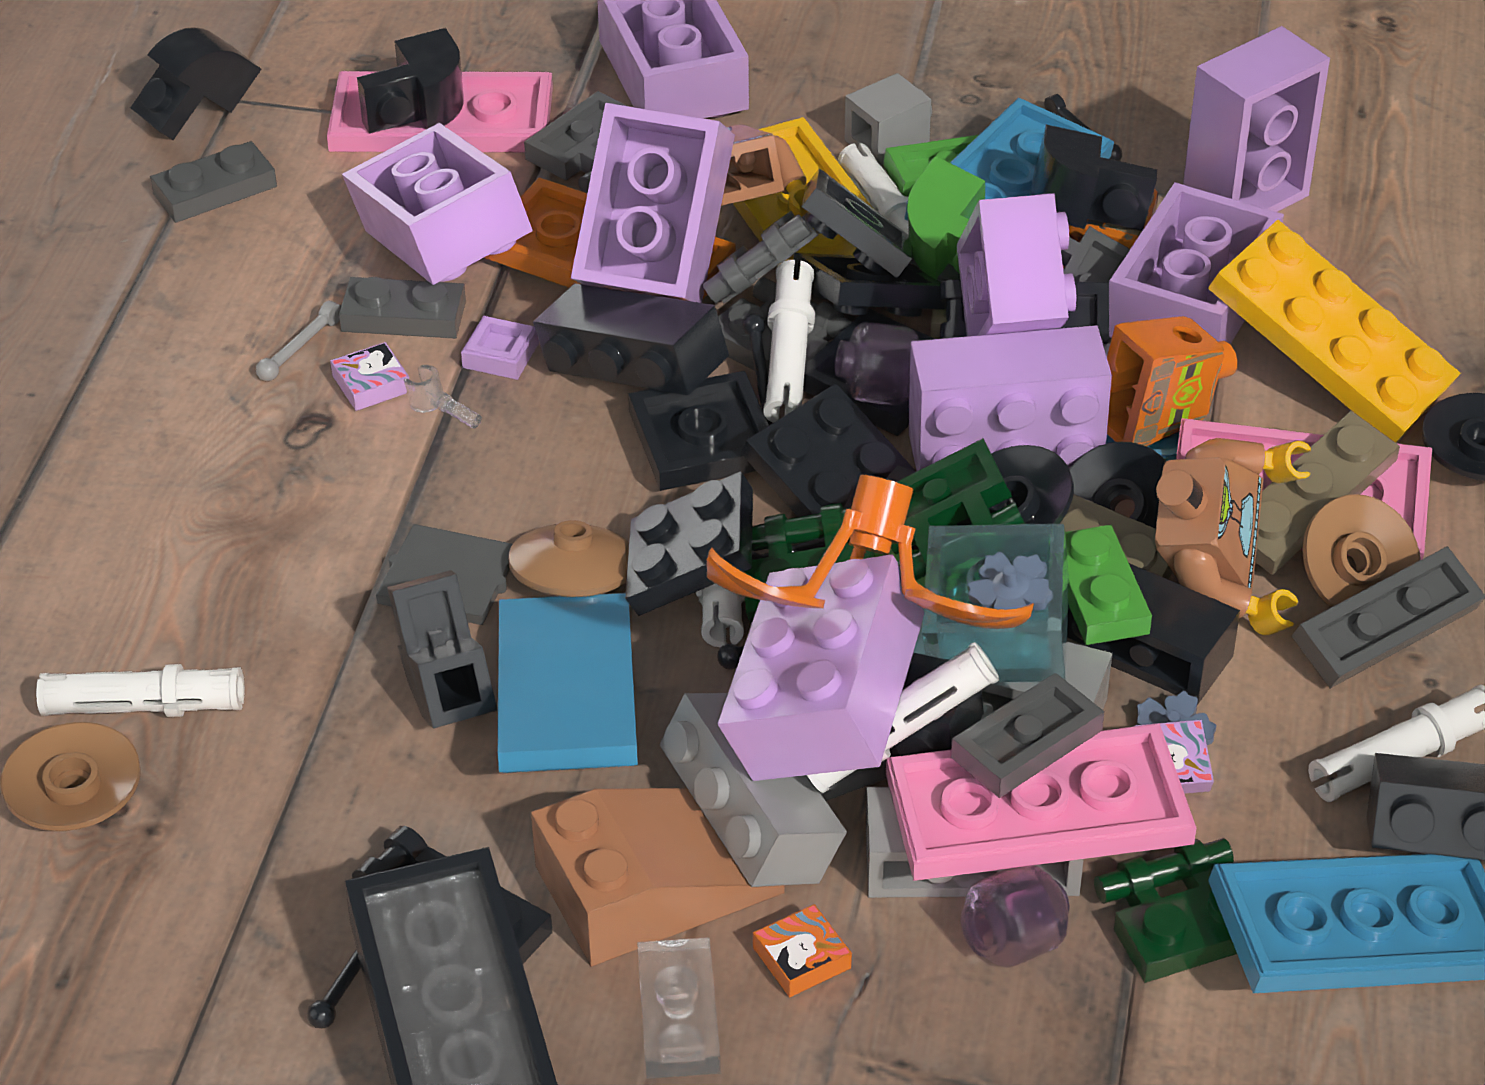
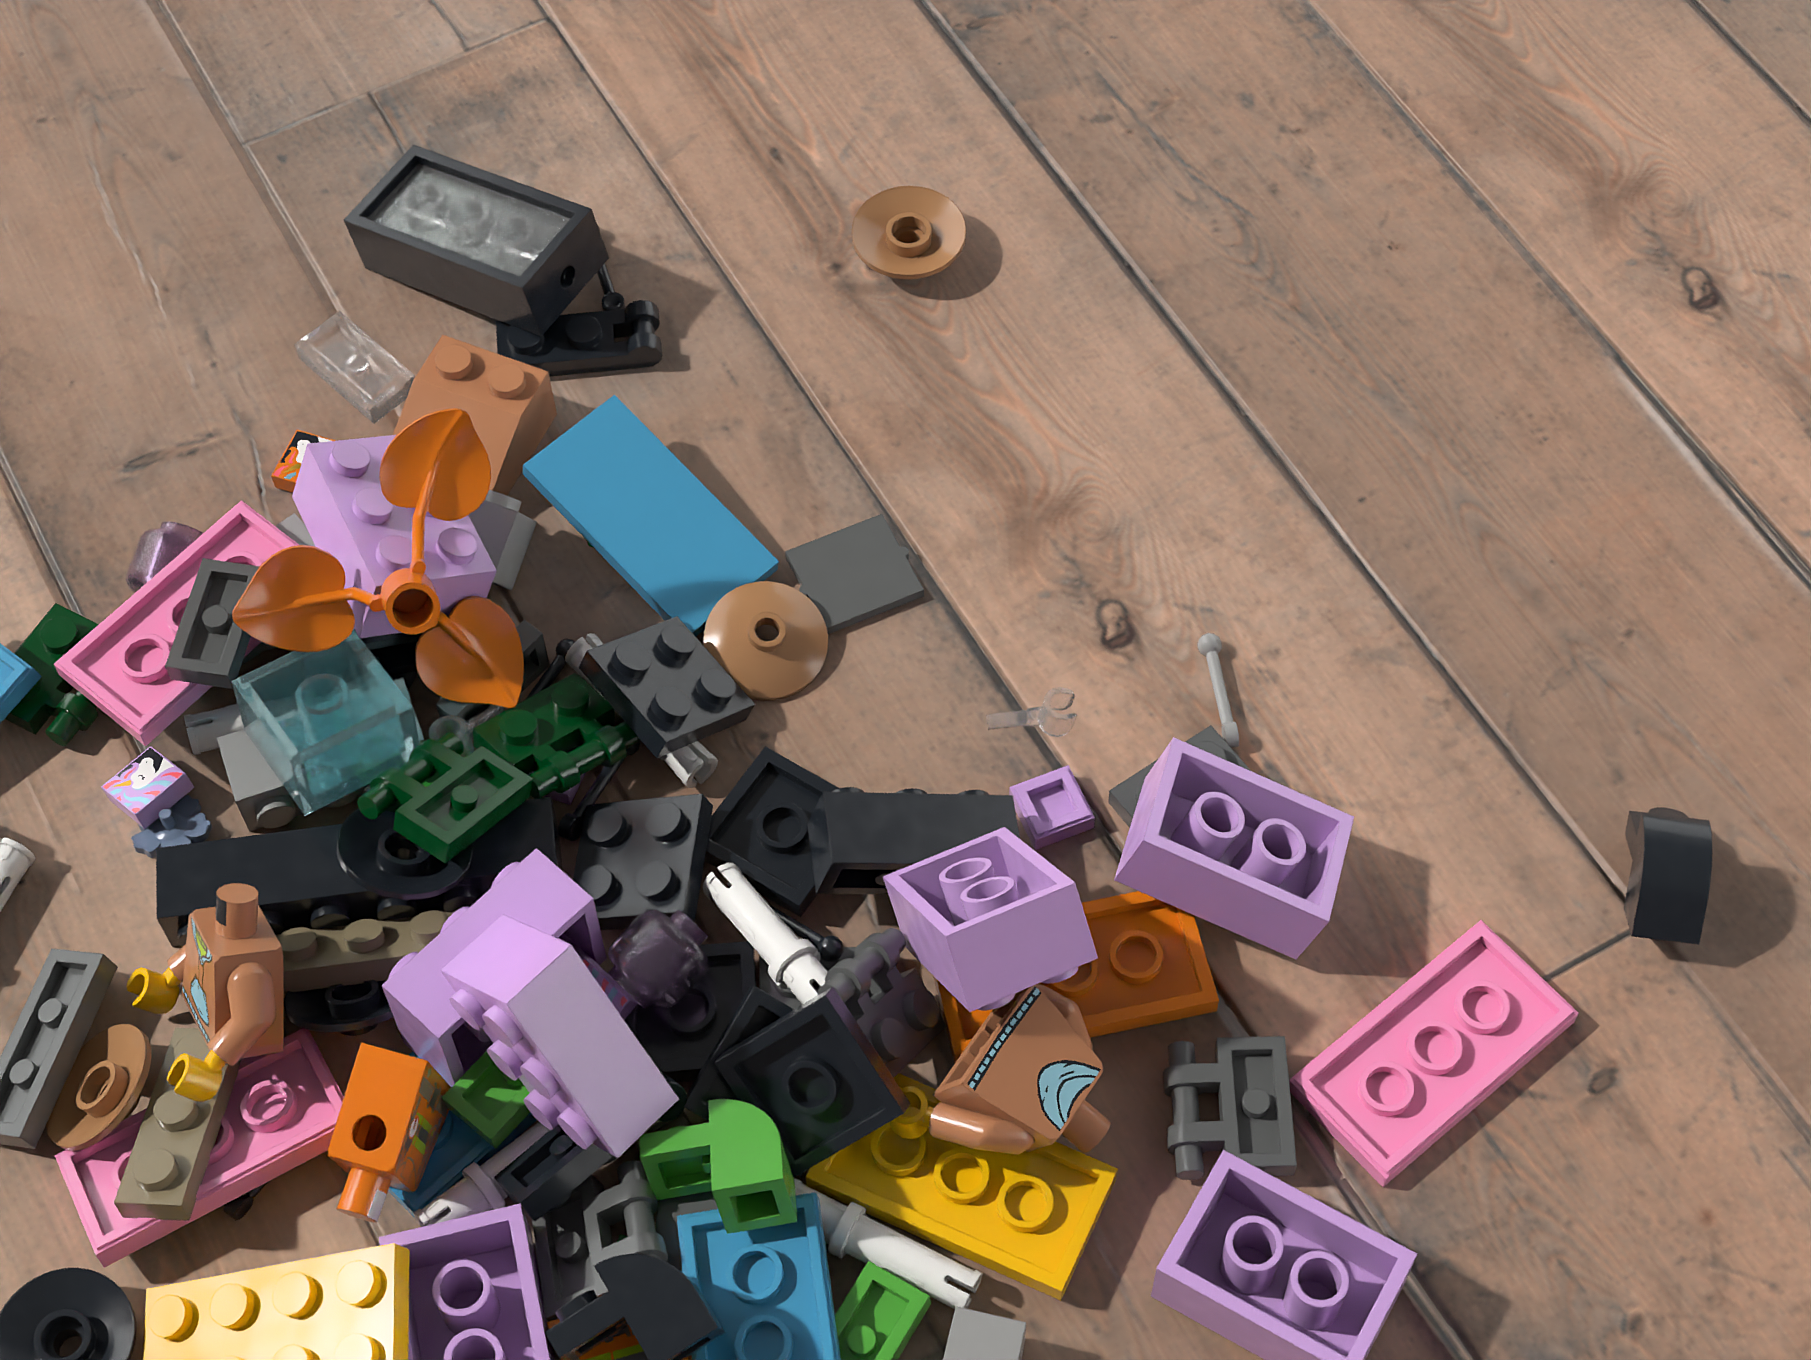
camera: 140 degrees right, 15 degrees up
(164, 691) = (928, 333): white pin -> none
(213, 181) = (1512, 800): dark grey plate -> none
(369, 376) = (1118, 695): lavender tile -> none
(421, 87) = (1445, 1025): black brick -> none
(437, 650) = (750, 470): black brick -> none
(1010, 585) = (295, 686): sand blue plant -> none
(1103, 587) = (282, 845): bright green plate -> none

